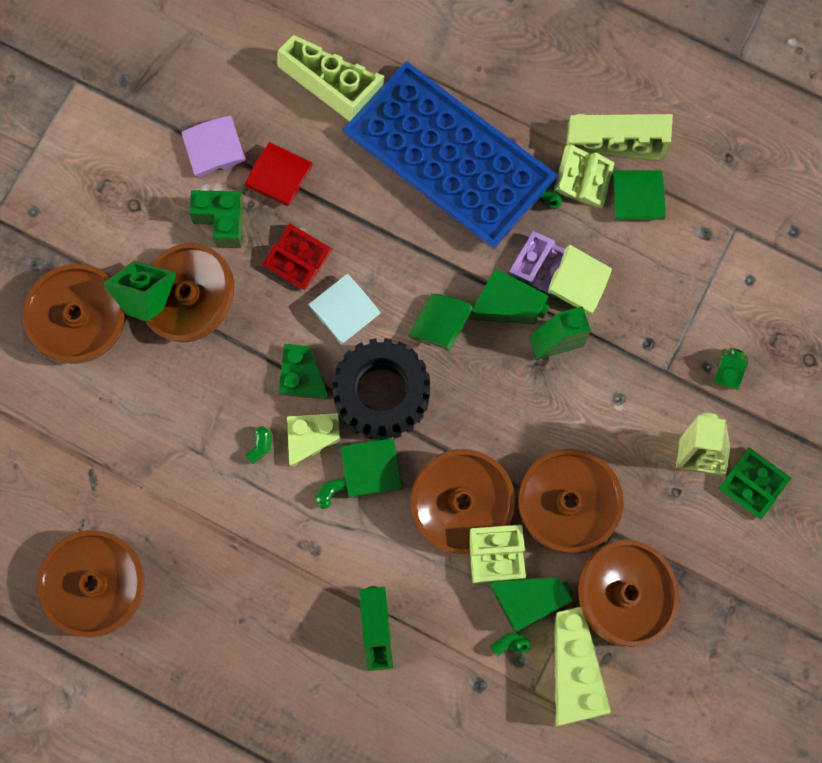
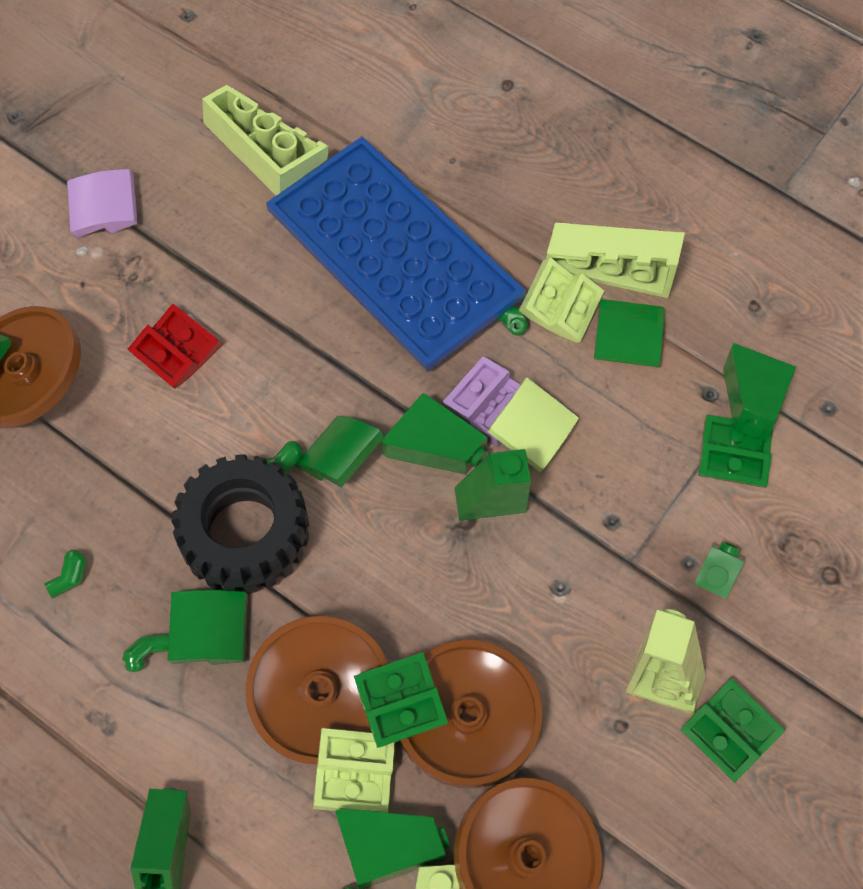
camera: 10 degrees right, 10 degrees down
(222, 210) = (91, 277): green brick -> none
(278, 174) = (174, 245): red slope -> none
(300, 374) = (143, 491): green wing -> none
(310, 435) = (137, 571): yellowish green wing -> none
(344, 308) = (219, 417): light aqua slope -> none
(400, 333) = (287, 457): none -> green arm
(522, 500) = (400, 699): none -> green slope
(730, 277) = (733, 455): none -> green slope
(739, 228) = (755, 390): none -> green slope

